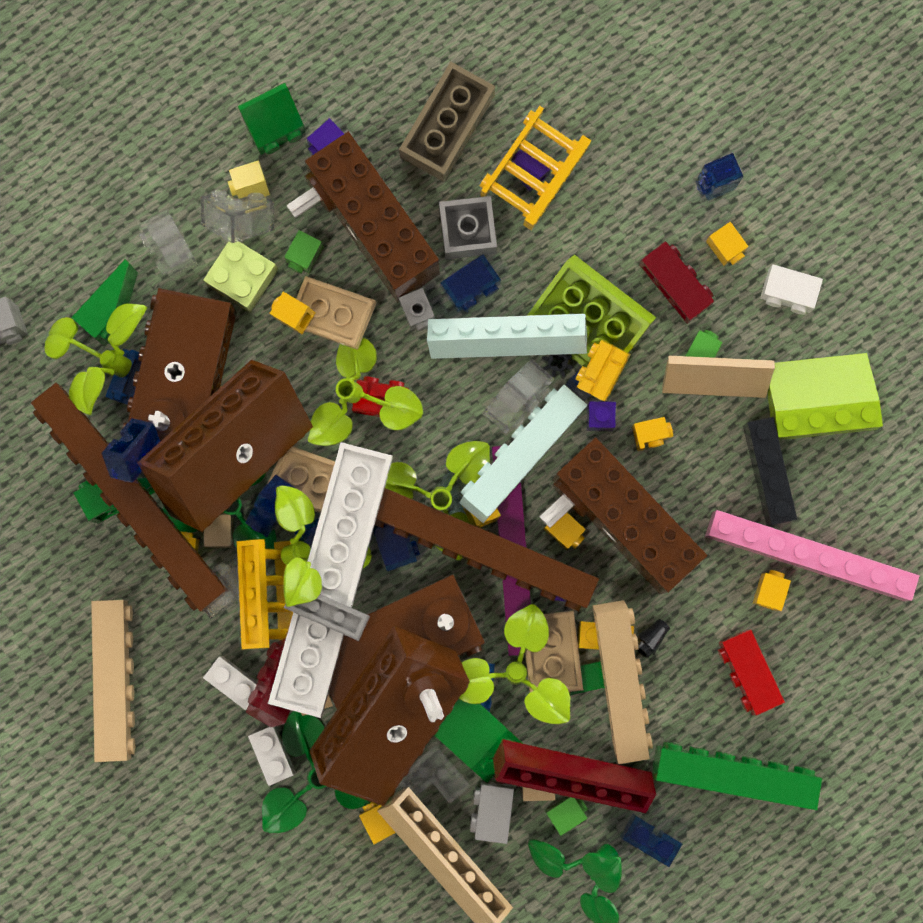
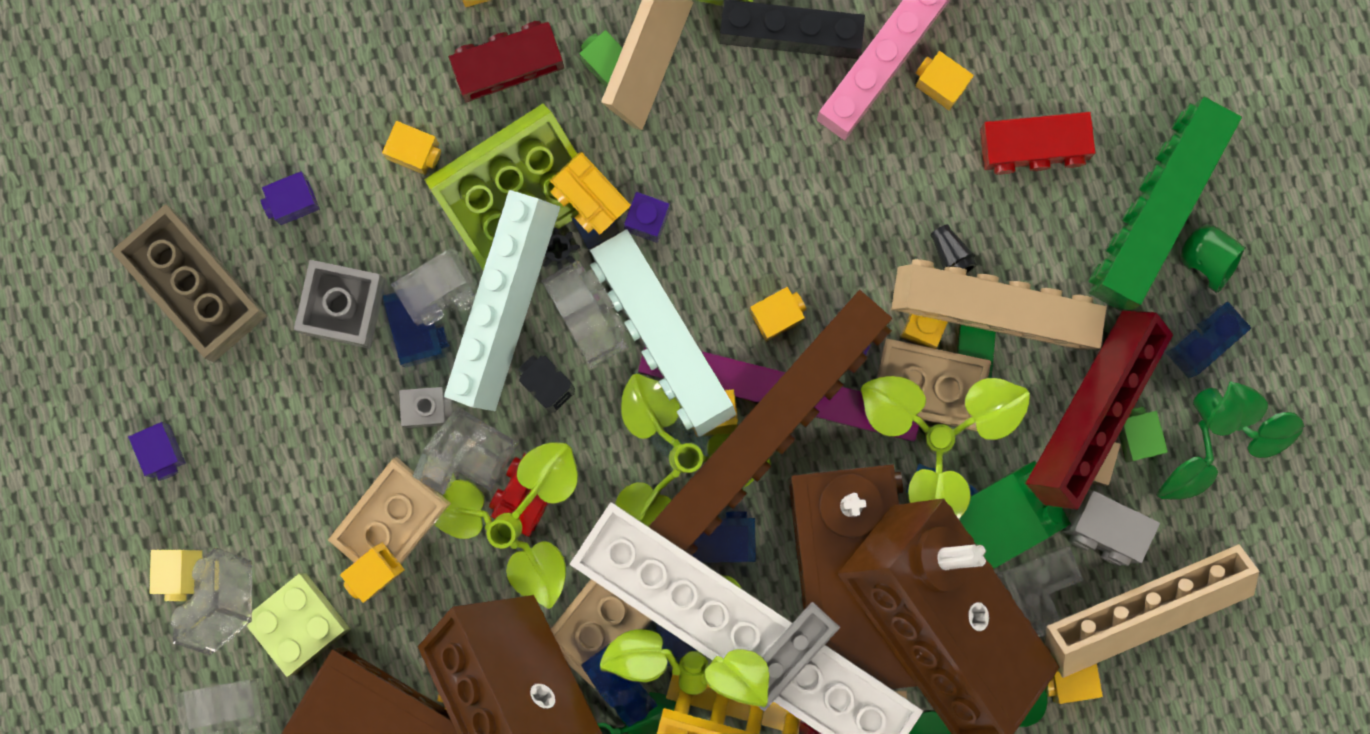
camera: 70 degrees left, 0 degrees up
(272, 119) = (103, 512): green slope -> none
(303, 252) = (296, 531): bright green brick -> none
(371, 215) = (278, 424): reddish brown piece -> none
(398, 347) = (467, 448): none -> clear brick
(461, 385) = (546, 383): none -> black brick
(501, 287) = (435, 287): none -> clear brick
(545, 190) = (306, 158): yellow fence -> none
(593, 239) = (412, 148): none -> yellow brick
(626, 515) = (788, 227): reddish brown piece -> none
(651, 433) = (690, 160): yellow brick -> none
(712, 824) = (1212, 254): none -> green helmet

